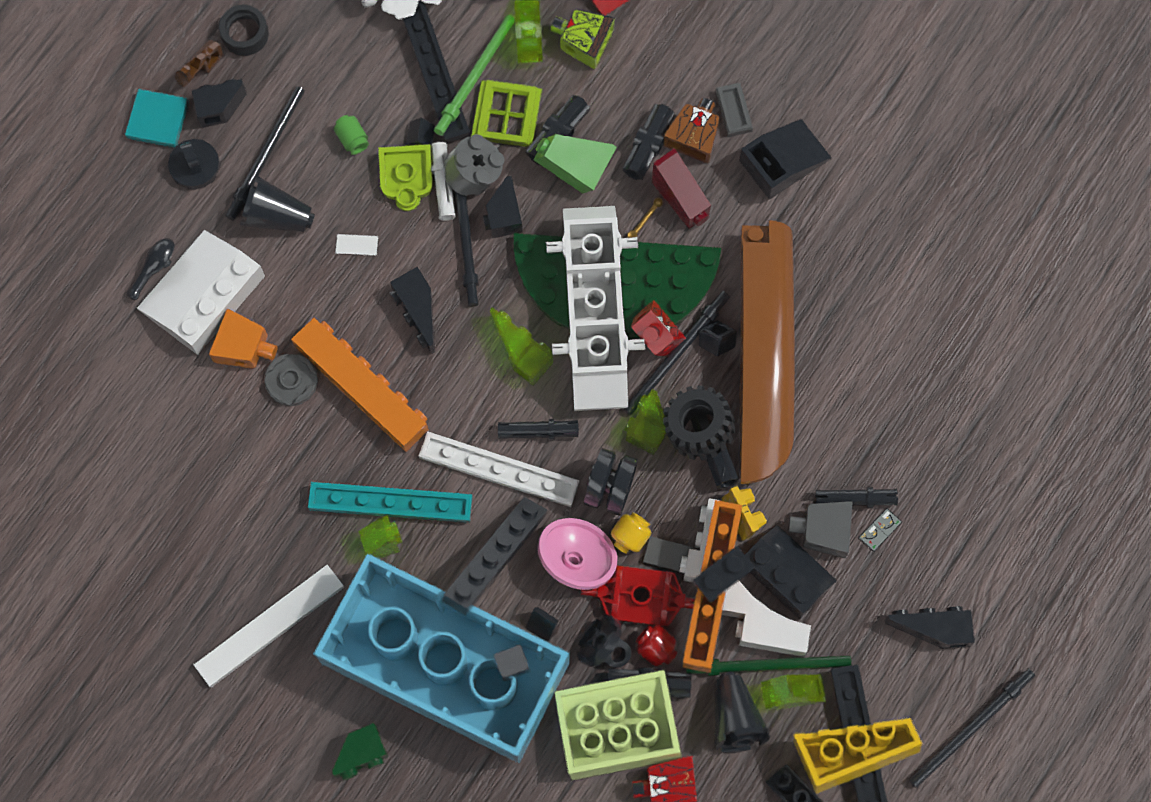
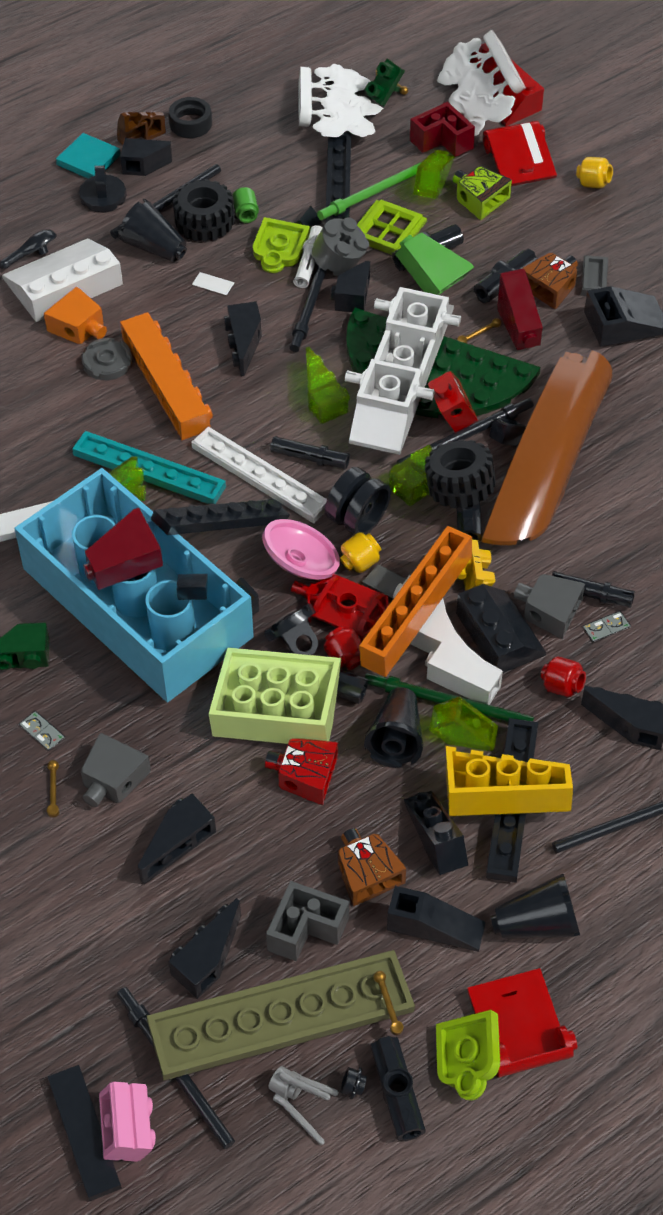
camera: 20 degrees right, 20 degrees down
(309, 140) = (203, 210): none -> black tyre
(434, 652) = (123, 552): none -> dark red slope
(723, 574) = (429, 583): black plate -> none
(863, 606) = (563, 676): none -> red head

